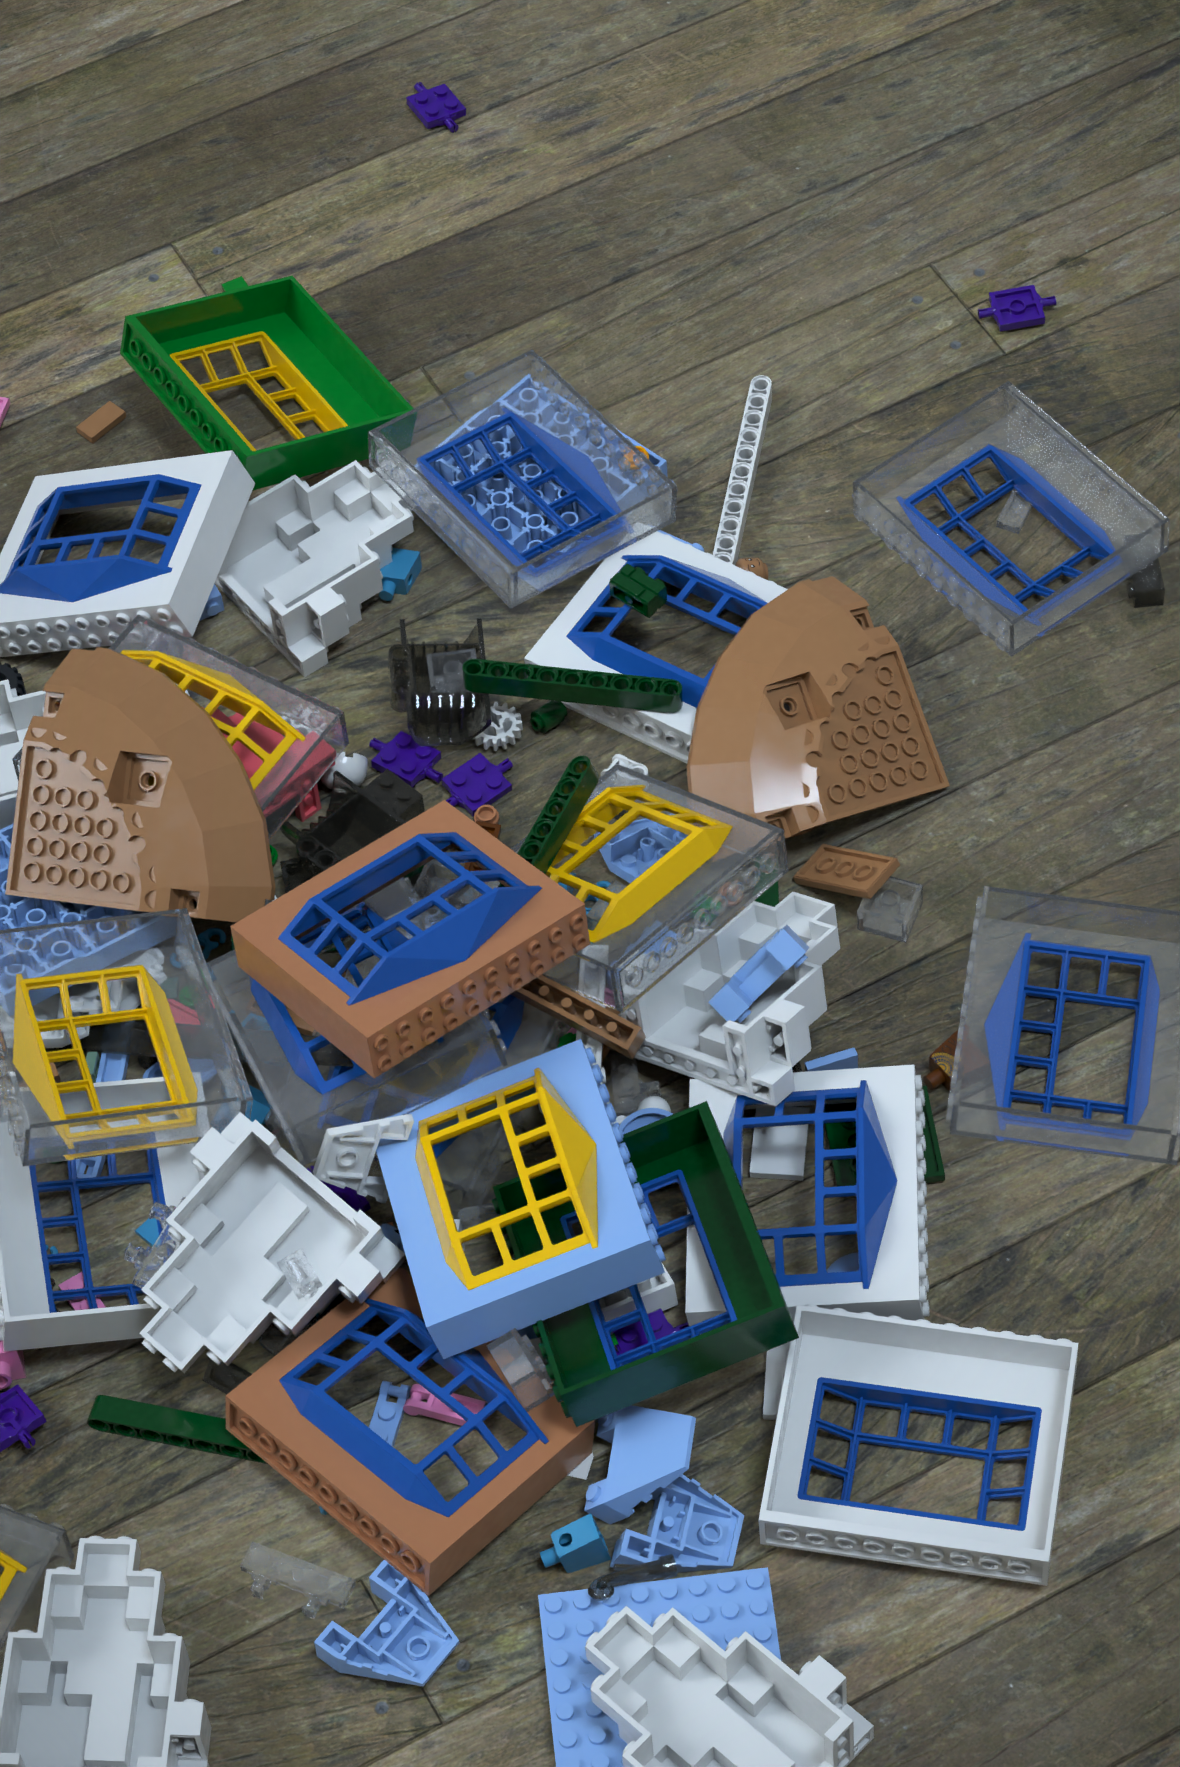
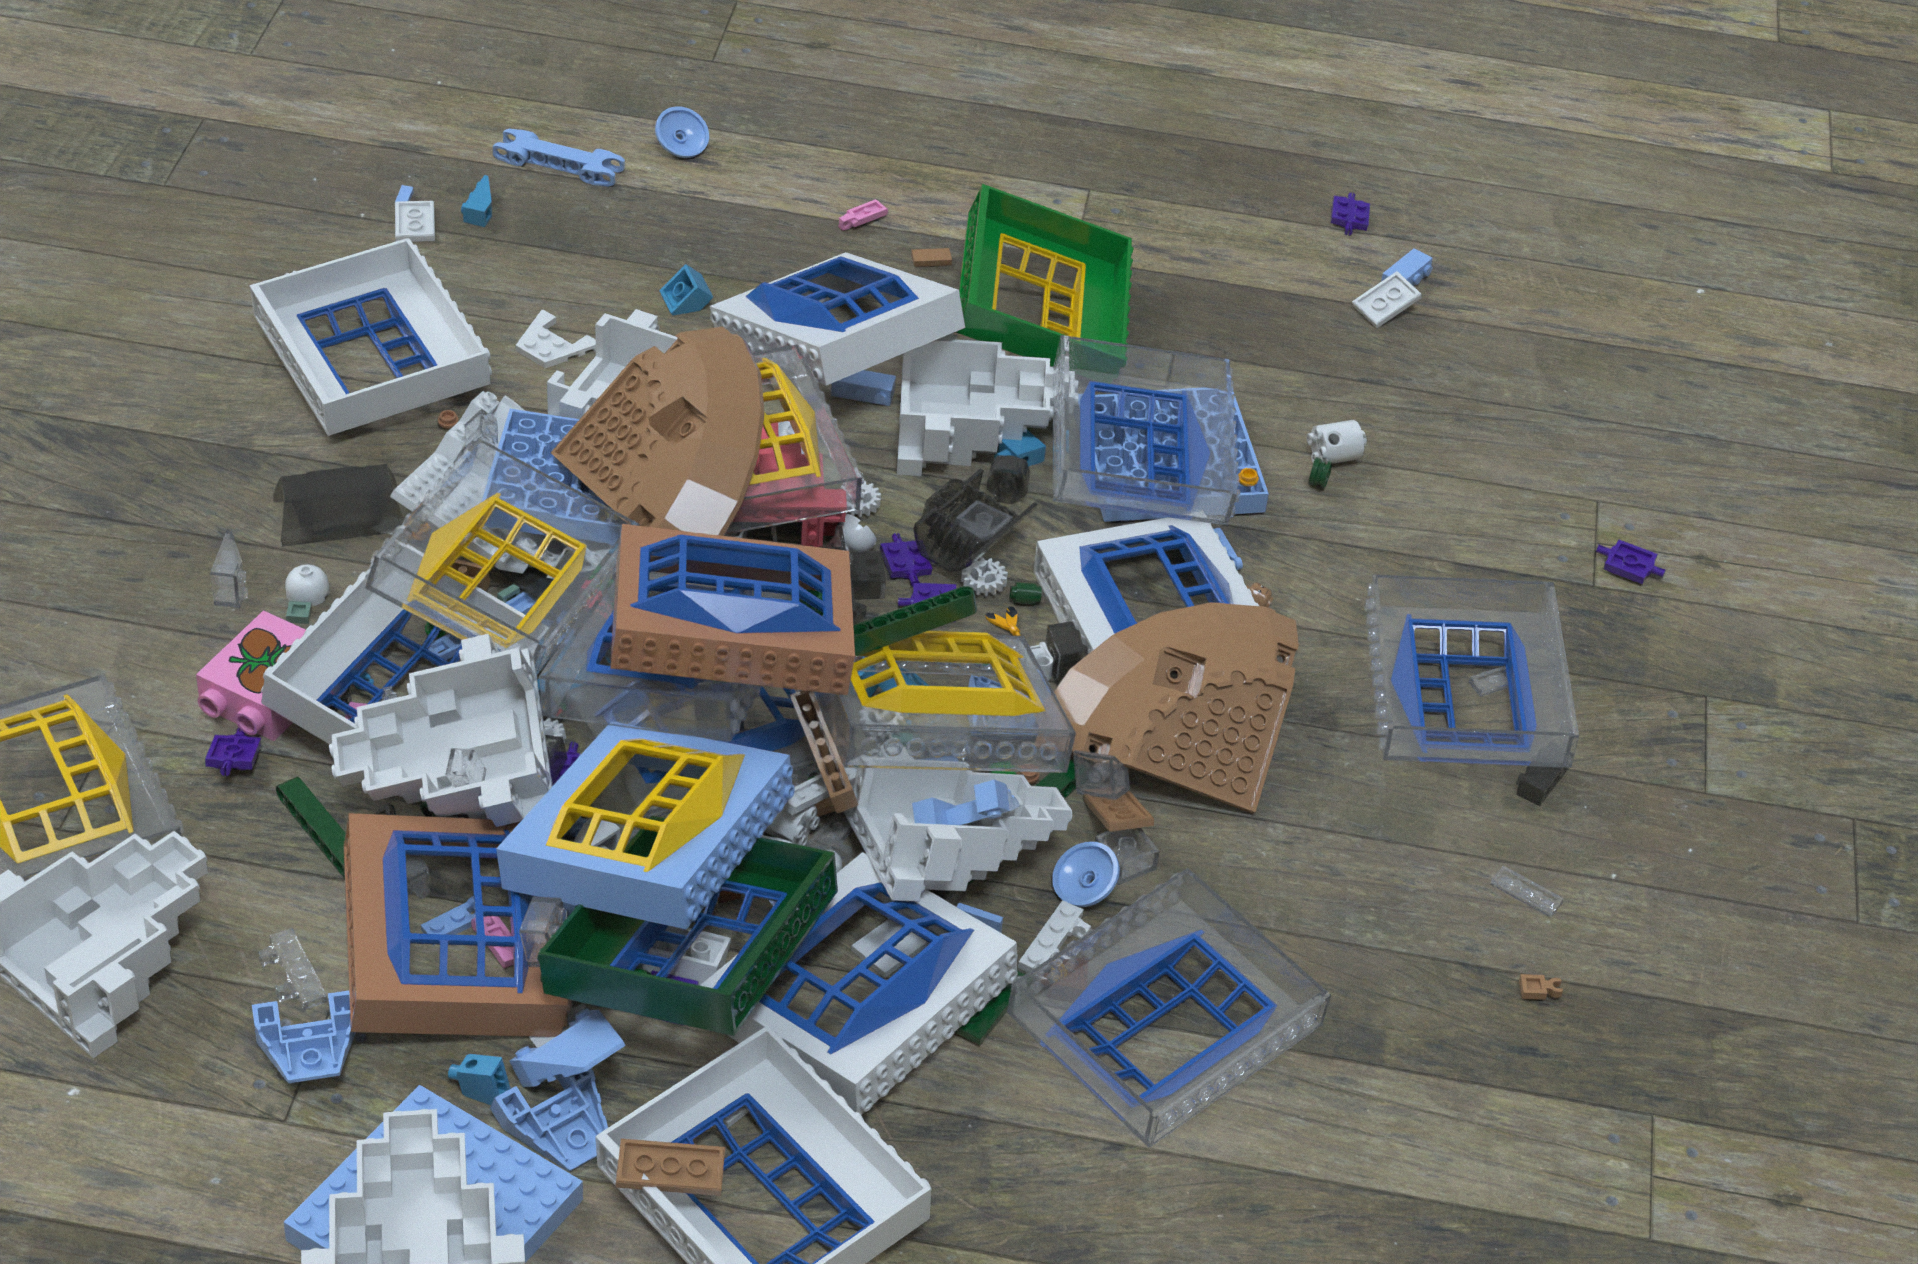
camera: 30 degrees right, 10 degrees down
(349, 1152) = (578, 723): white wing -> none
(422, 610) = (1008, 478): none -> clear smoke brick
(551, 138) = (1412, 267): none -> light blue brick
(559, 756) = (1008, 623): none -> light orange piece
(563, 179) = (1386, 299): none -> white tile
(572, 685) = (1047, 573): dark green beam -> none
(624, 1574) = (513, 1128): clear smoke plant -> none
(638, 590) = (1148, 542): dark green brick -> none
(652, 748) = (1065, 647): none -> clear smoke brick
(667, 364) = (1337, 441): none -> white cylinder
(681, 405) = (1320, 473): none -> dark green wheel
(743, 470) = (1320, 537): white beam -> none
(807, 851) = (1100, 775): none -> clear slope
(848, 1495) = (670, 1167): none -> medium nougat tile
(865, 943) = (1079, 867): none -> light blue dish
(899, 1017) = (1063, 923): none -> white hinge

